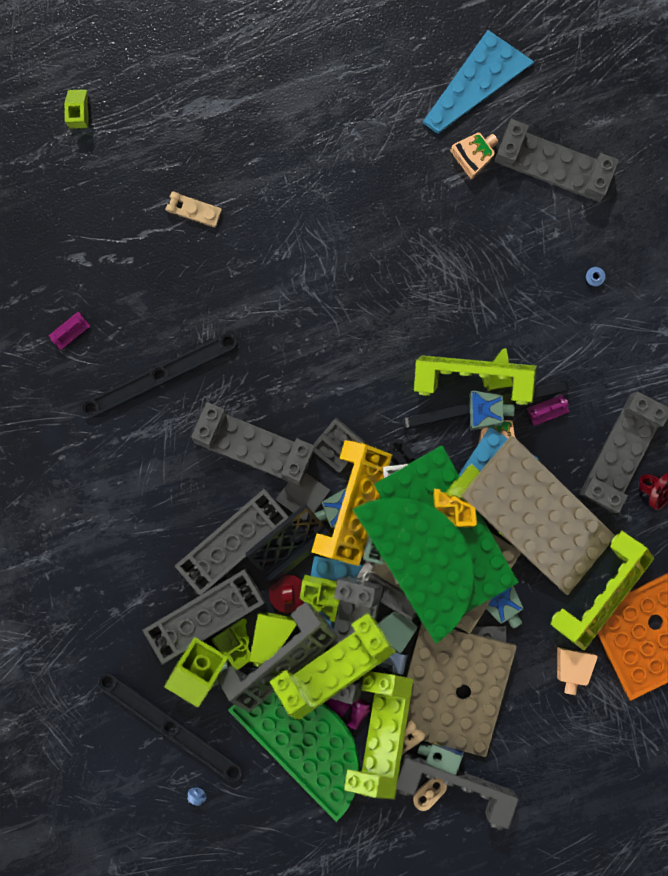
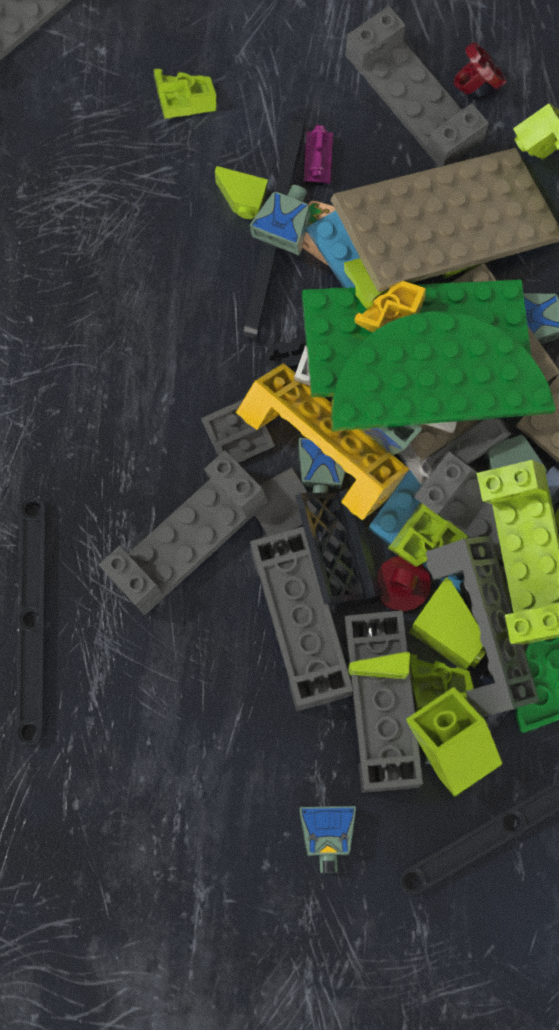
camera: 65 degrees left, 10 degrees down
(111, 618) = (327, 833): none -> torso
(221, 609) = (385, 666): none -> lime slope
(428, 374) = (270, 157): lime plate -> none
(550, 302) = (184, 94): none -> lime slope
(589, 276) = (179, 34): medium blue plate -> none

